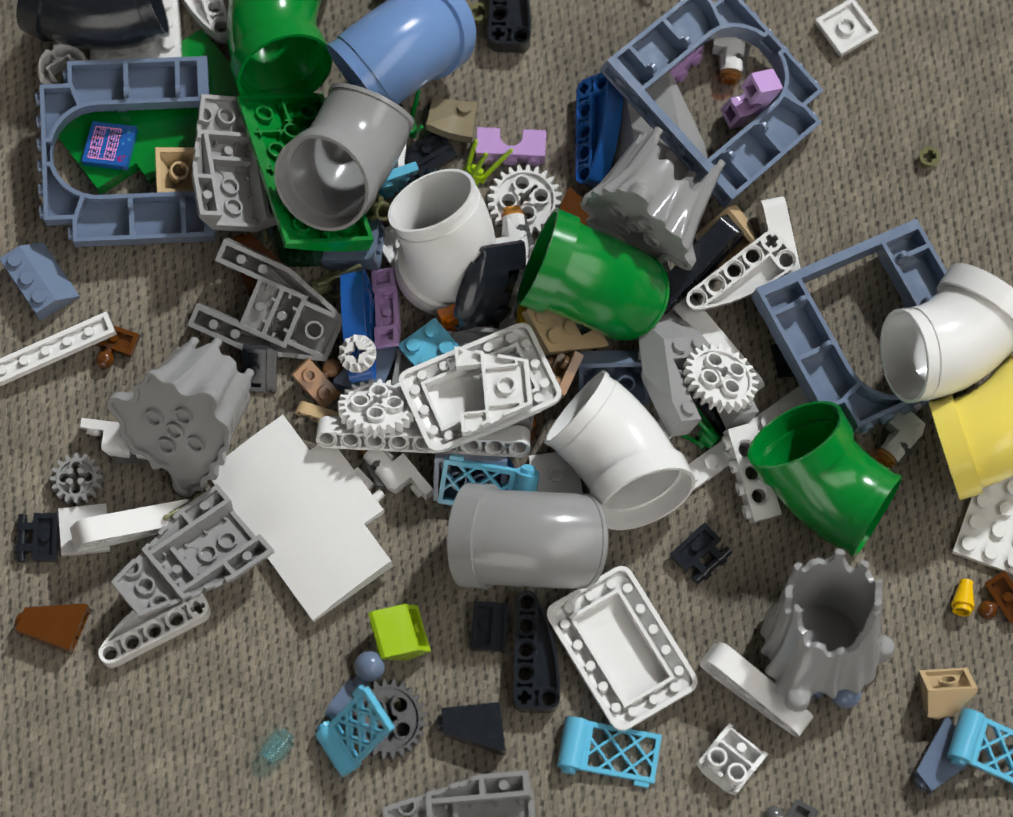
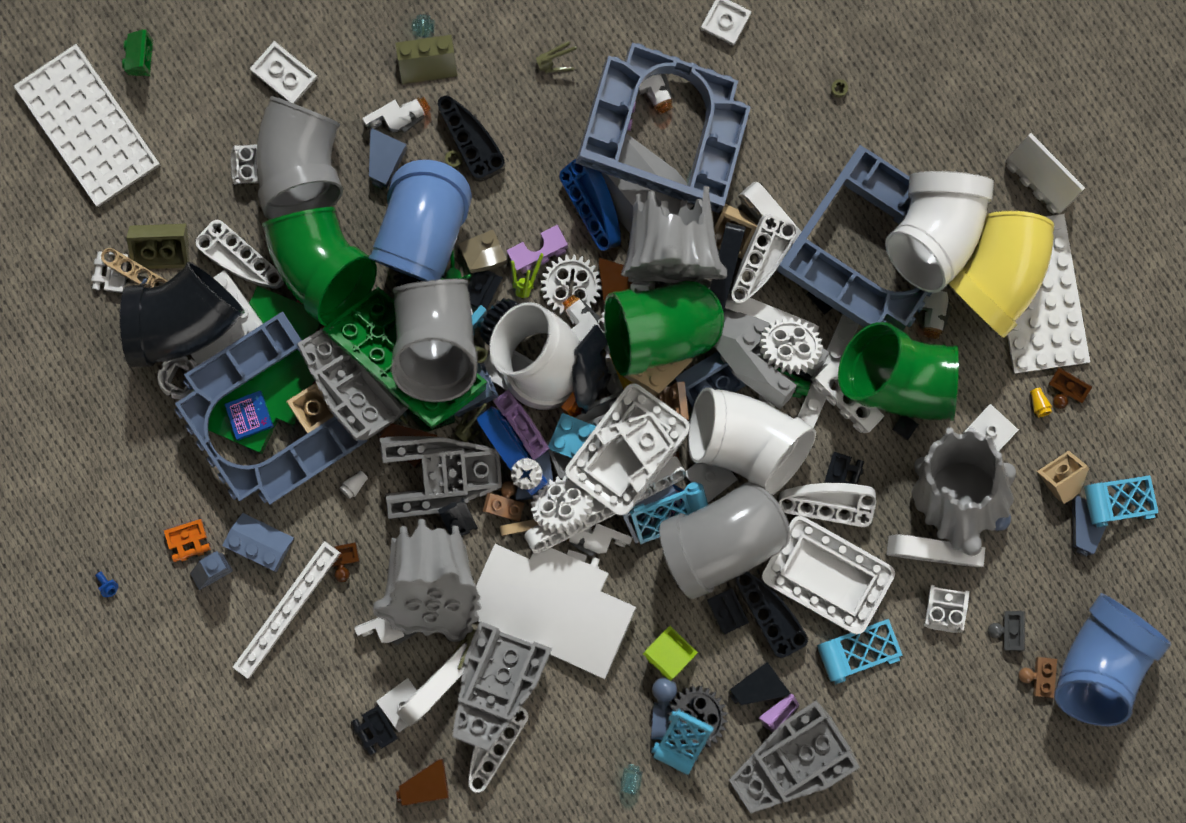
camera: 25 degrees left, 10 degrees up
(66, 470) = (365, 670): light grey gear -> none
(173, 276) = (353, 485): none -> white cone
(473, 765) = (780, 712): none -> lavender slope
(677, 569) = (836, 497): none -> white beam
(759, 92) = (693, 118): lavender arch -> none
(798, 542) = (905, 427): none -> black tile
(898, 598) = (994, 424): none -> white plate

